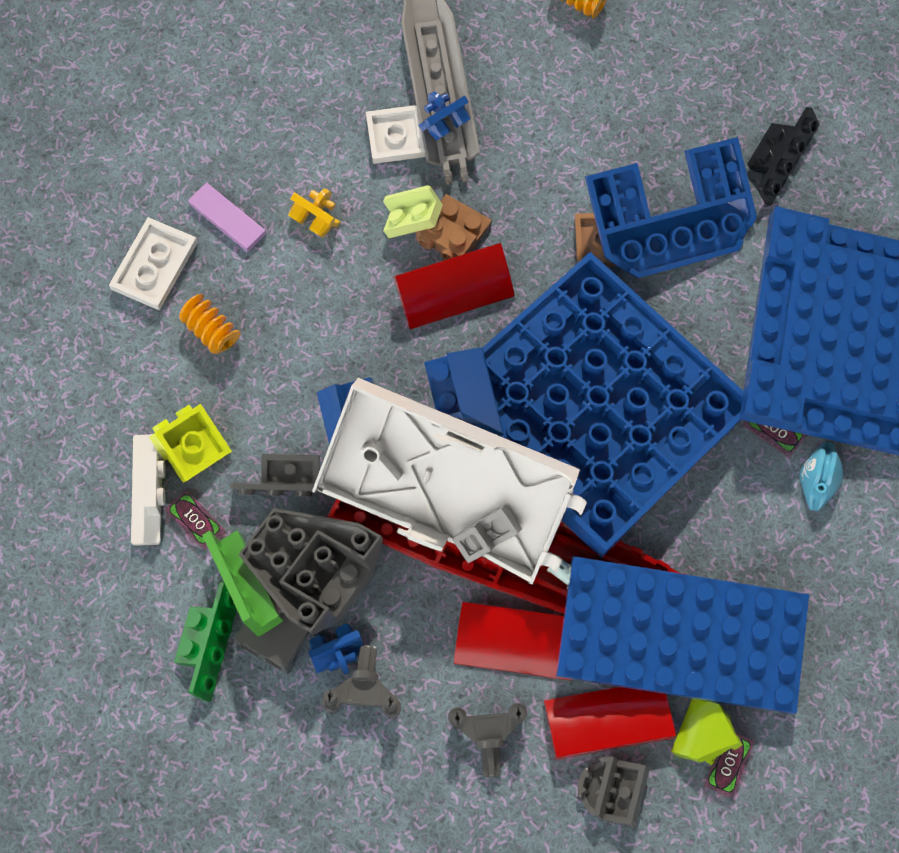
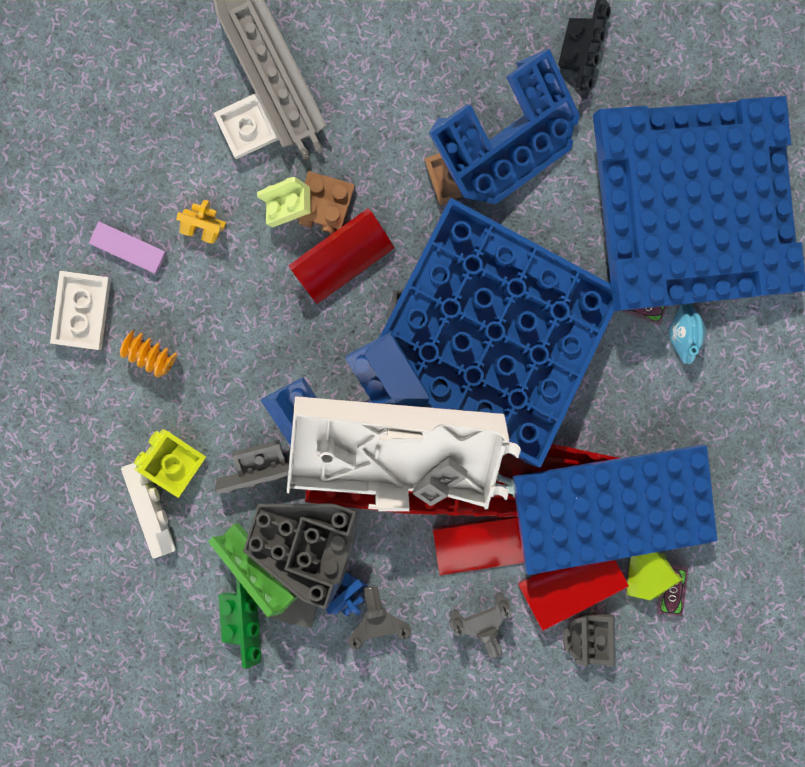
camera: 20 degrees left, 20 degrees up
(193, 518) = (196, 521): clear pink tile -> none
(455, 111) = (291, 91): blue hips -> none

